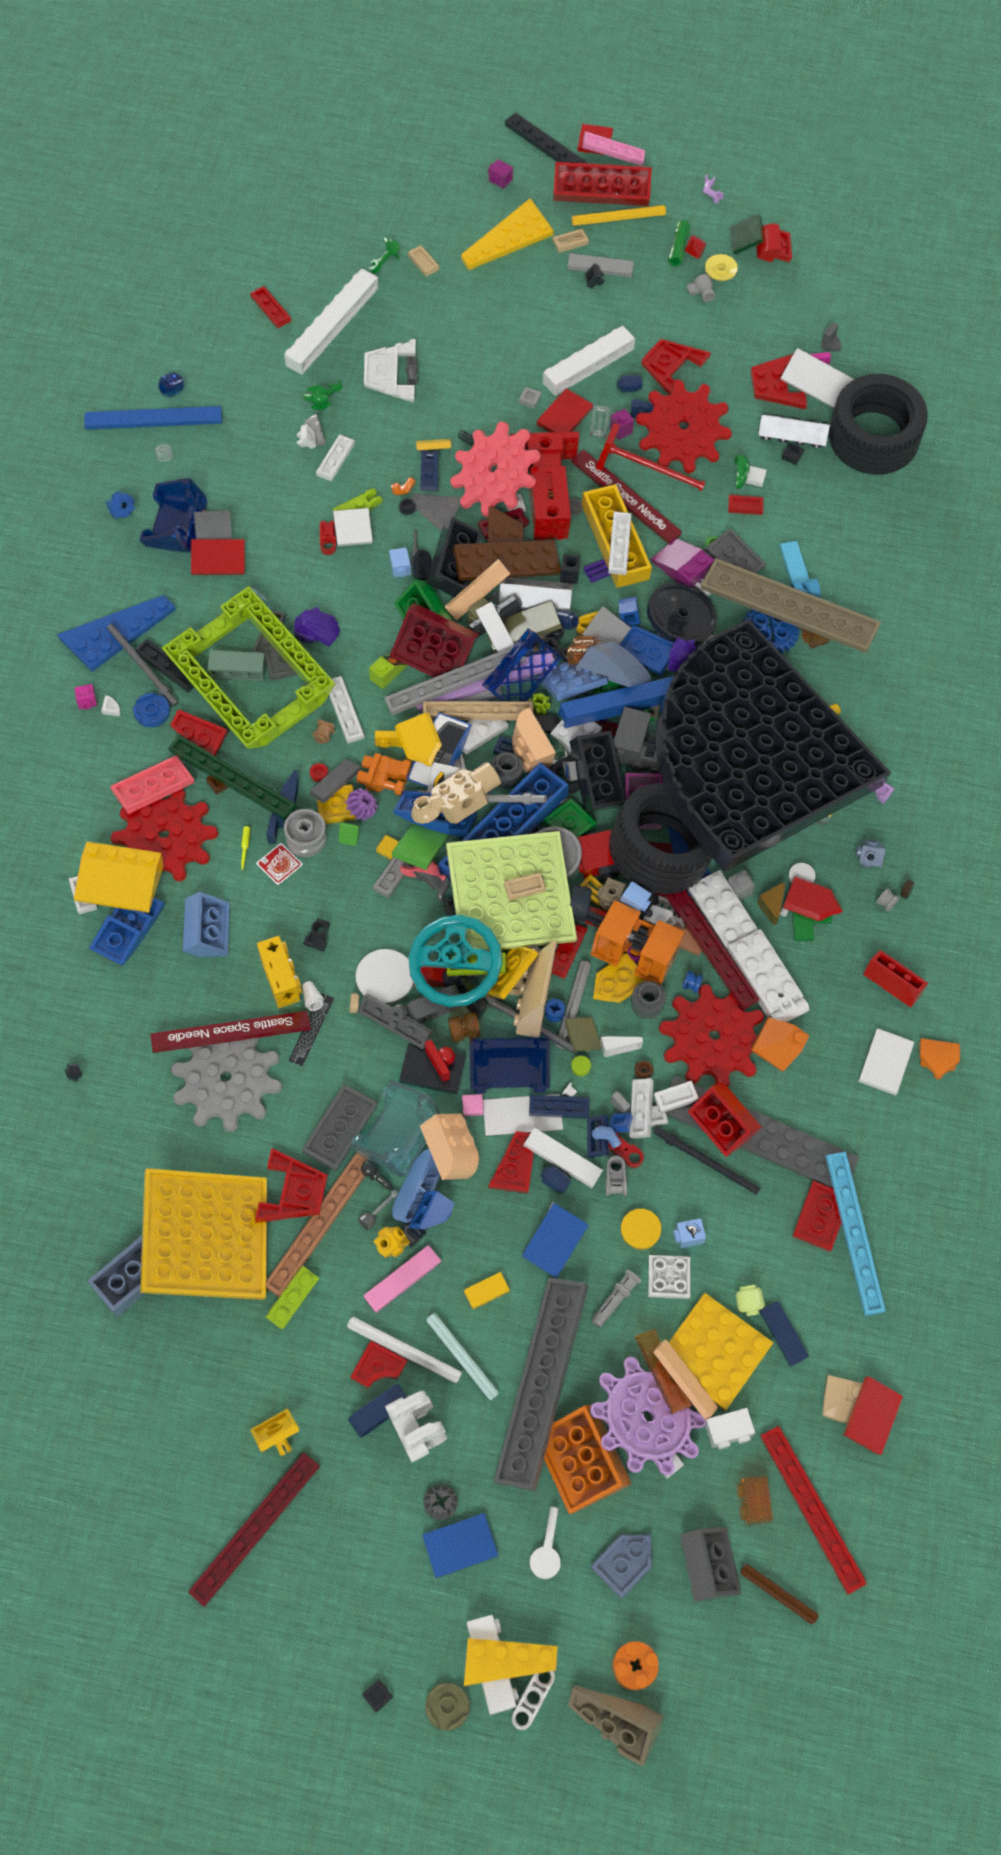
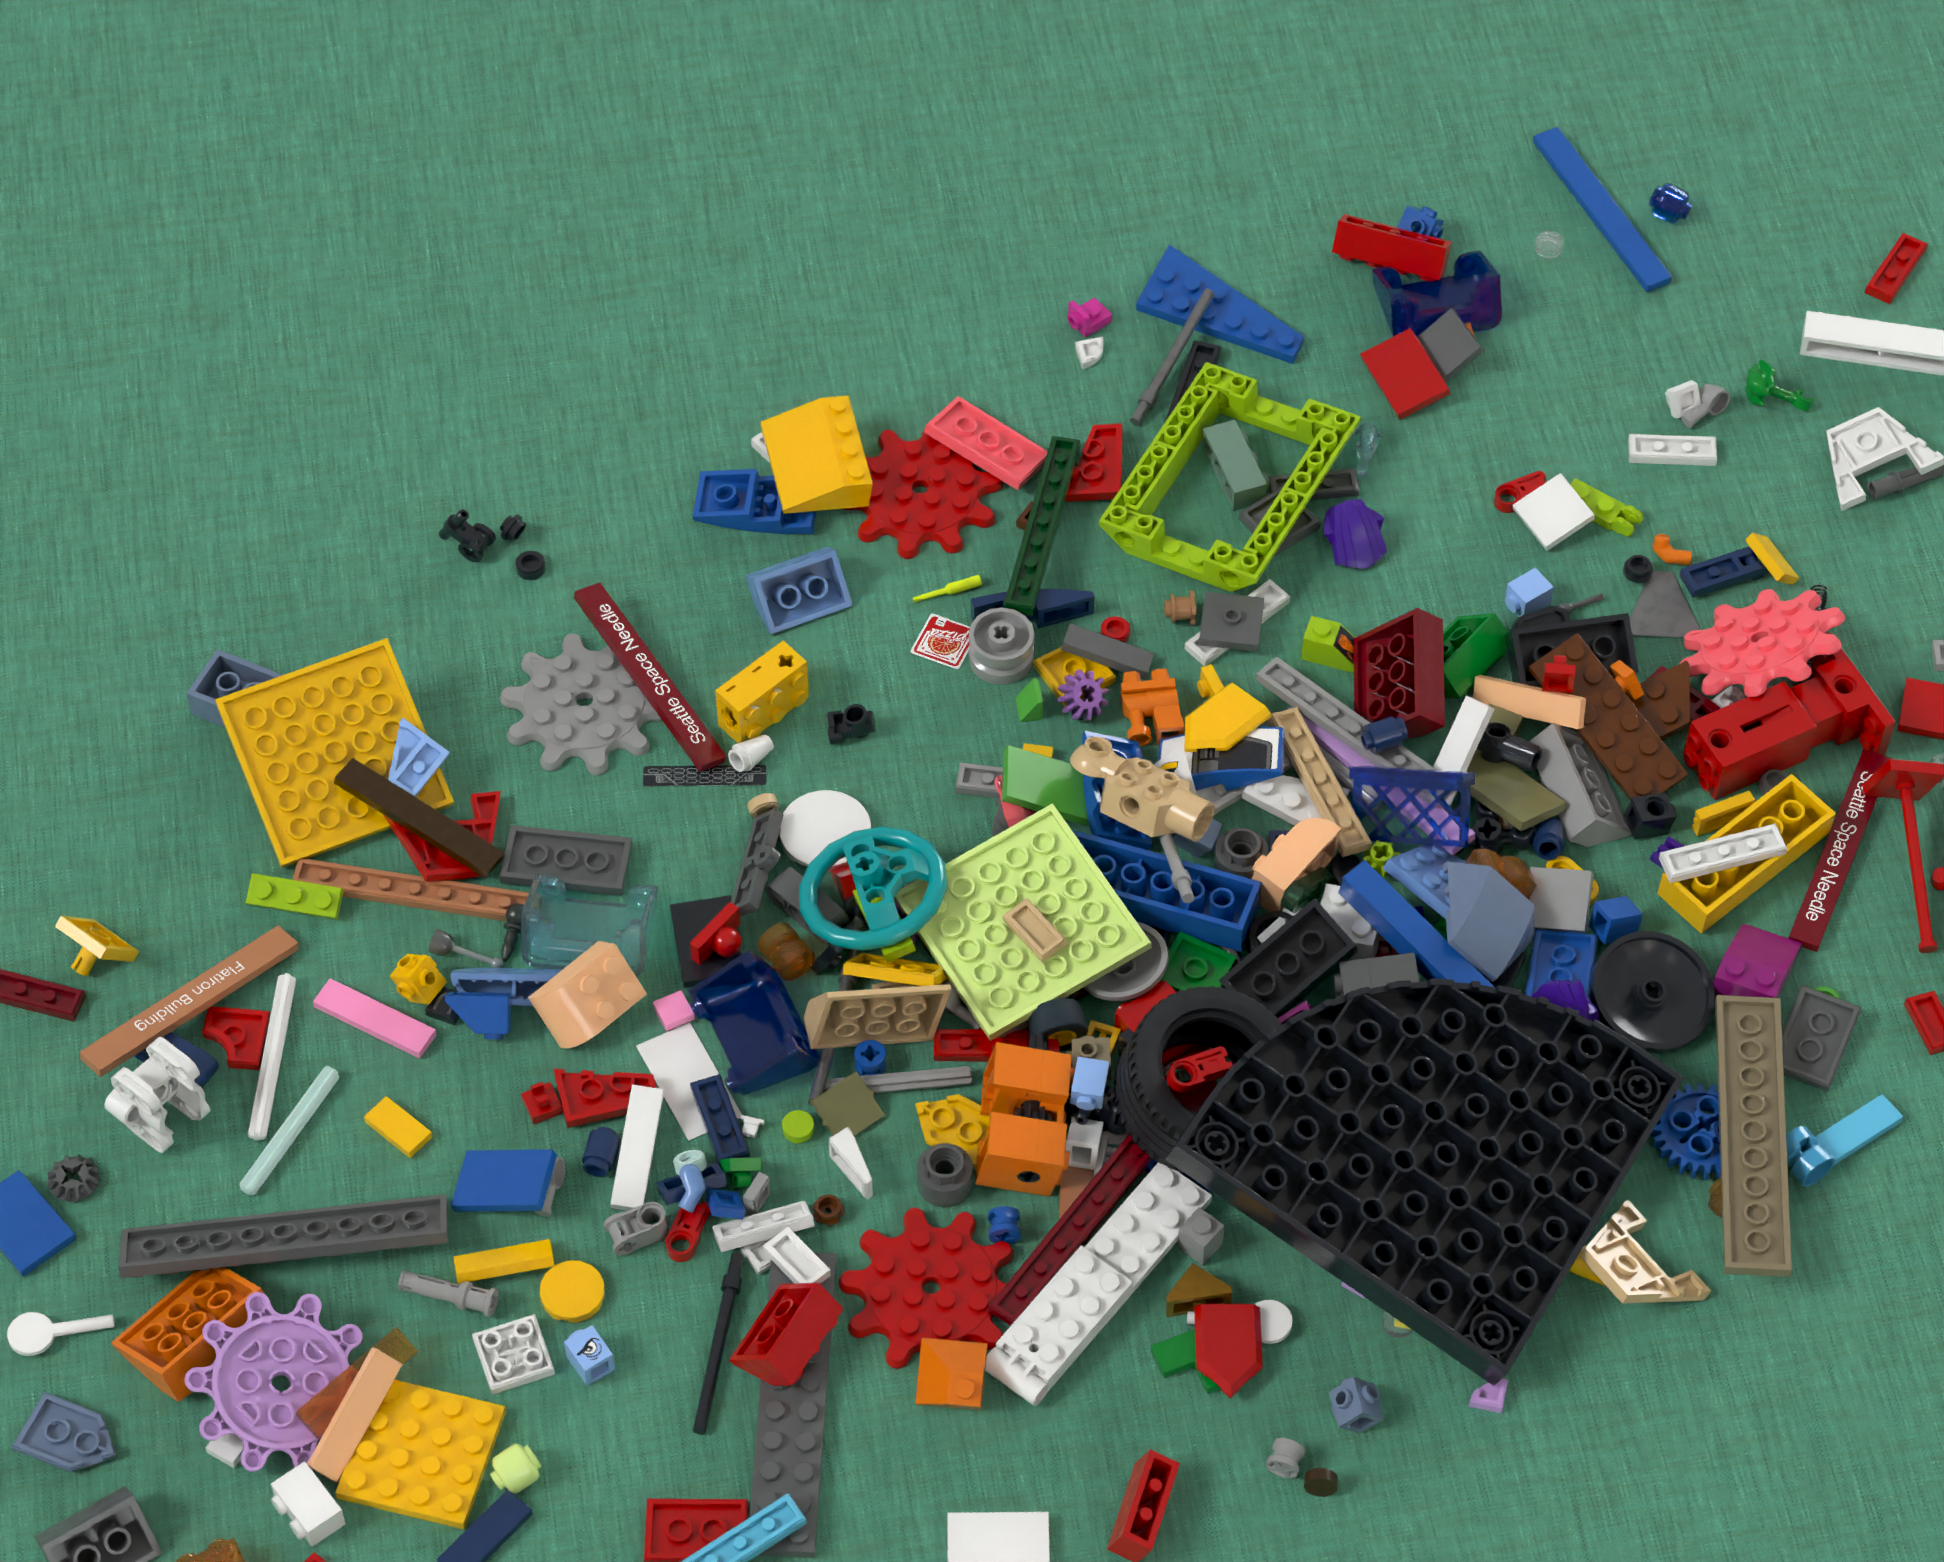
camera: 70 degrees right, 10 degrees down
(67, 1098) = (467, 535): none -> black piece
(105, 1072) = (530, 565): none -> black tile
(128, 524) = (1391, 247): none -> red brick
(151, 710) = (1110, 399): blue tile -> none
(235, 1188) = (415, 758): none -> light blue wing
(277, 1200) = (419, 818): none -> dark brown tile
(346, 710) = (1231, 621): none -> dark grey plate
(348, 1387) = (188, 1001): none -> nougat tile
(473, 663) = (1384, 734): none -> dark blue brick
(479, 564) = (1558, 676): none -> red tile
(488, 537) = (1627, 680): none -> orange plate
(504, 1201) = (541, 1102): none -> red tile
(583, 536) = (1720, 813): none -> yellow tile
(583, 1132) = (690, 1157): none -> light aqua tile
(599, 1105) = (740, 1170): none -> green tile
(607, 1260) = (503, 1261): none -> yellow tile
(675, 830) = (1202, 1068): none -> red piece
(843, 695) = (1630, 1270): none -> tan wing

